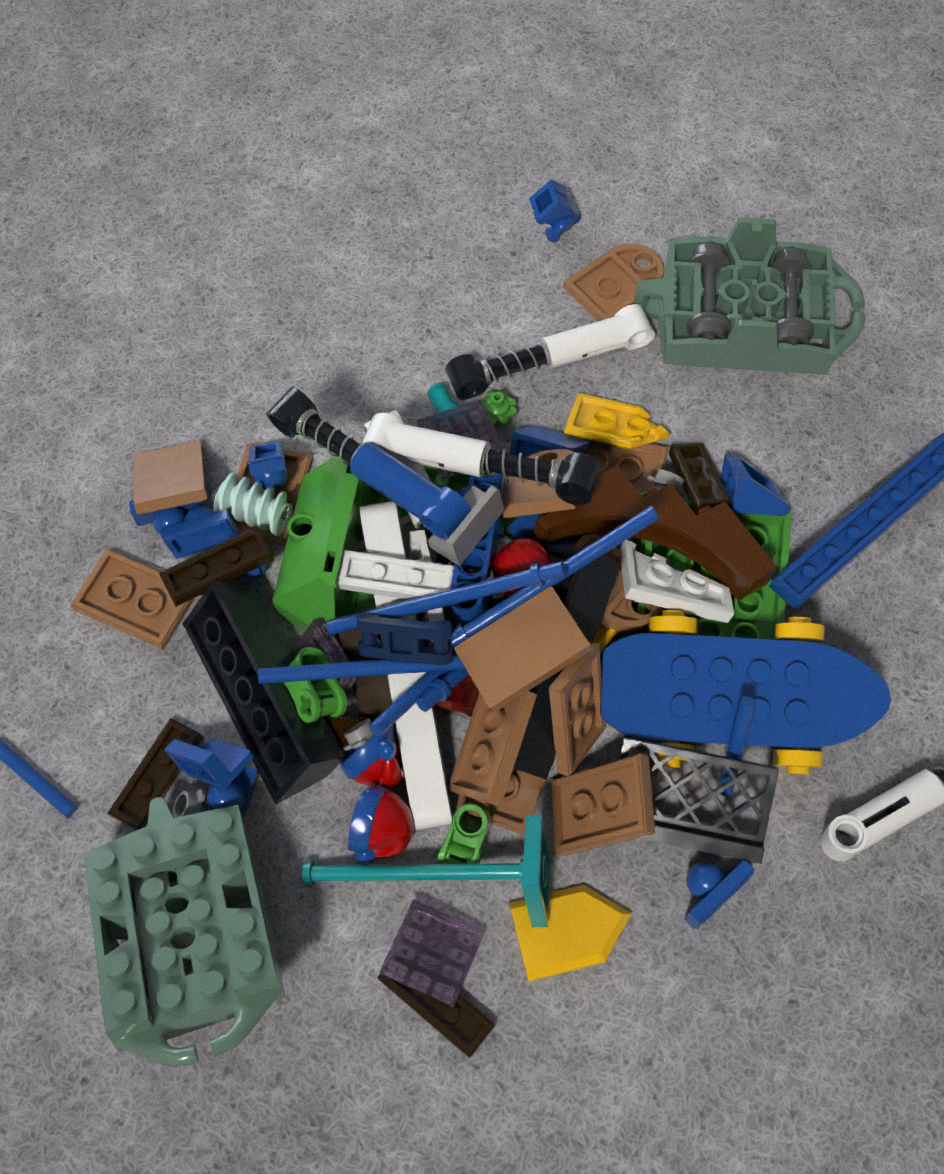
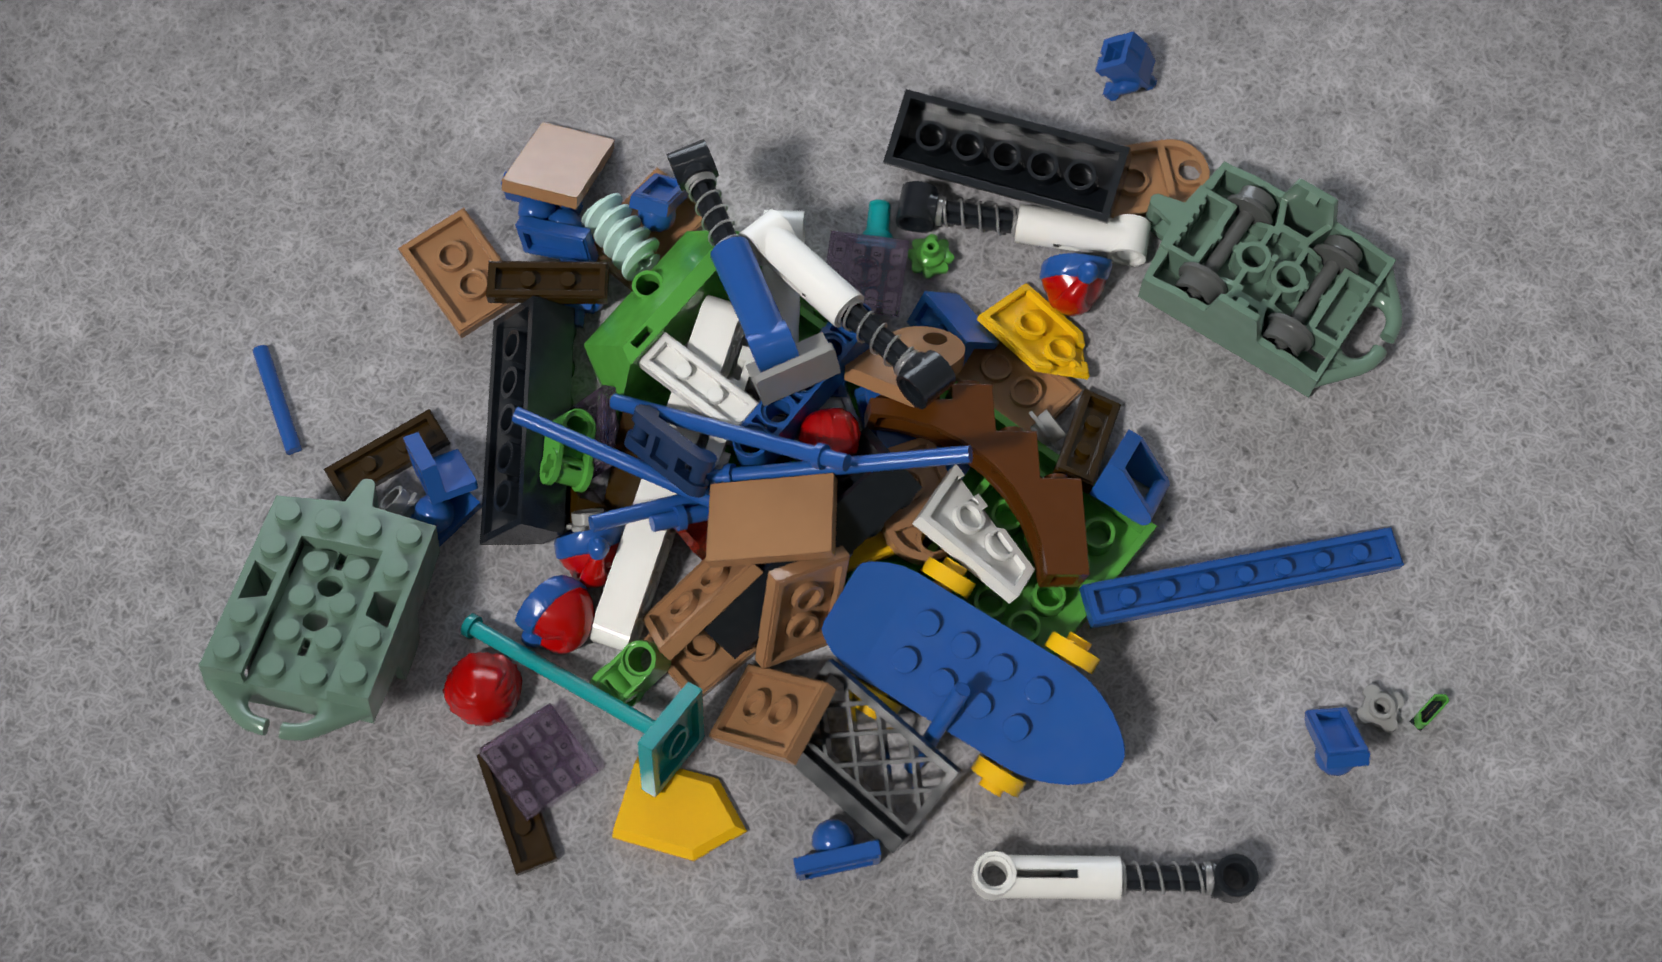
camera: 30 degrees right, 5 degrees up
(349, 919) = (483, 688): none -> red hair
(514, 306) = (1008, 156): none -> black slope
(615, 372) = (1074, 281): none -> piece

